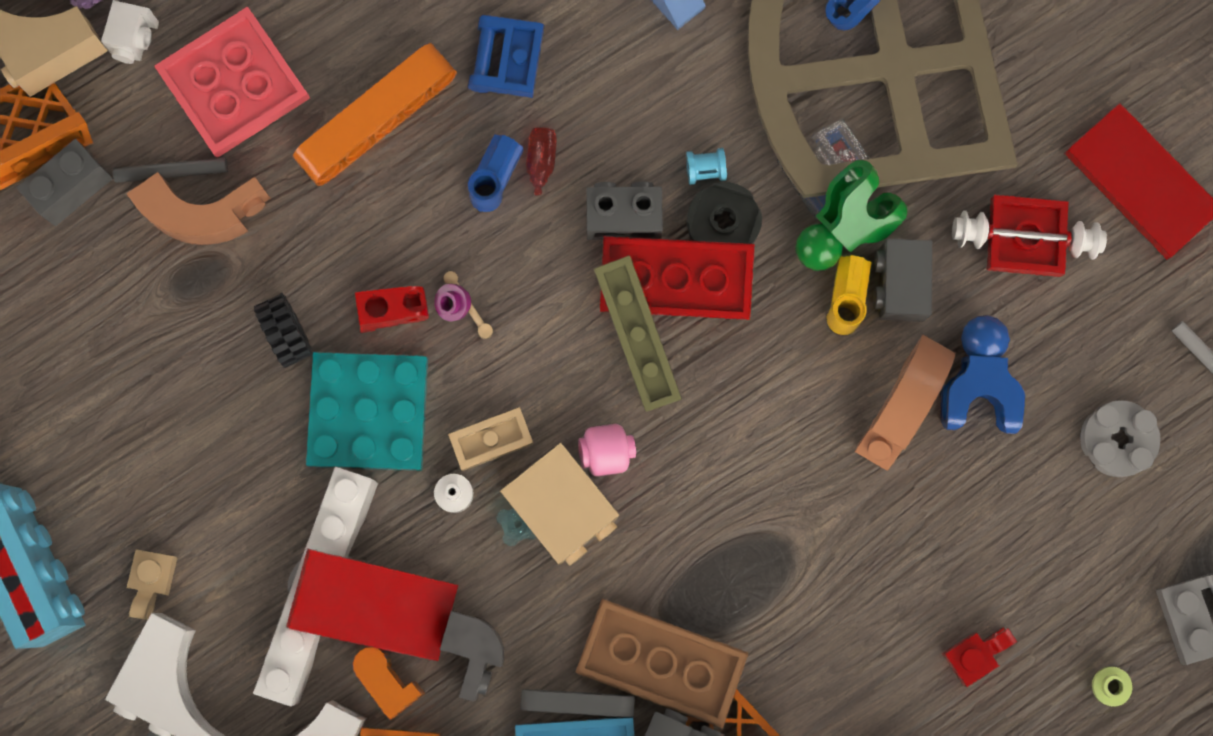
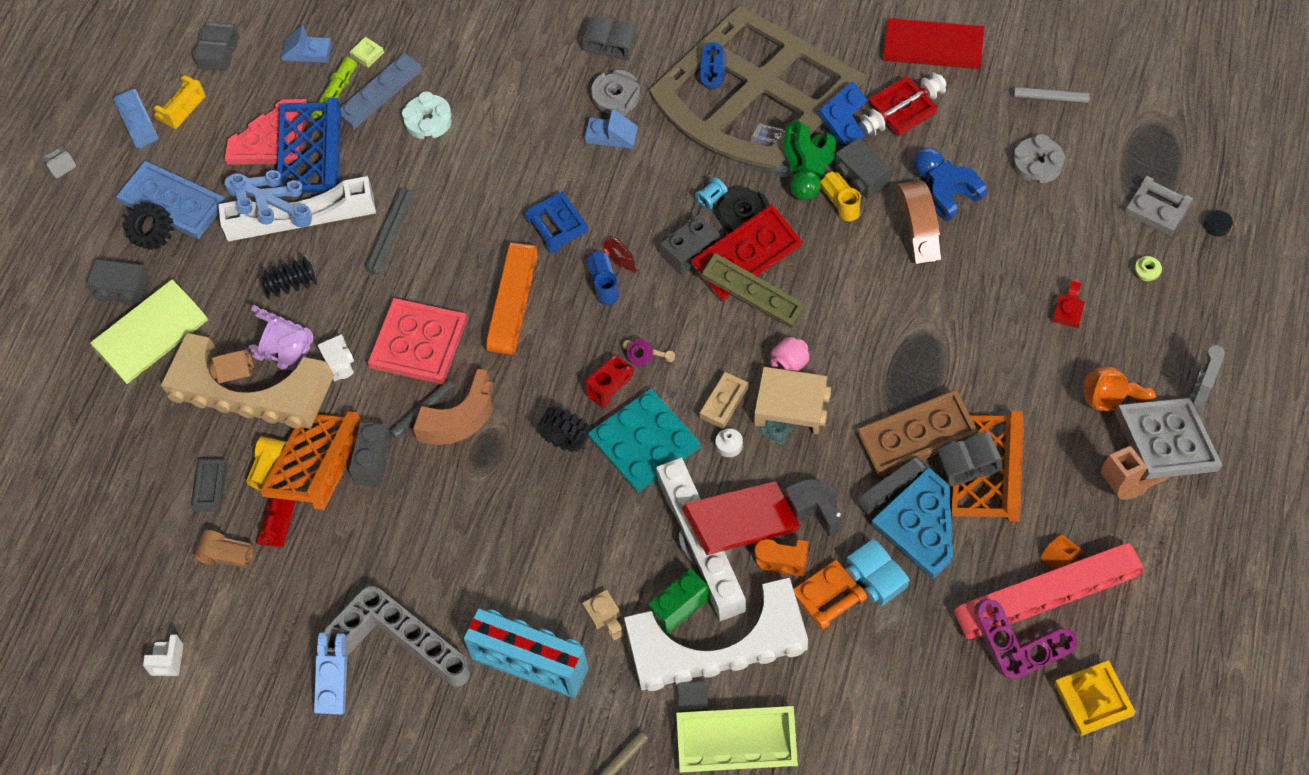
camera: 30 degrees left, 20 degrees down
(229, 639) = (679, 601): none -> green brick
(937, 187) = (838, 114): none -> blue plate

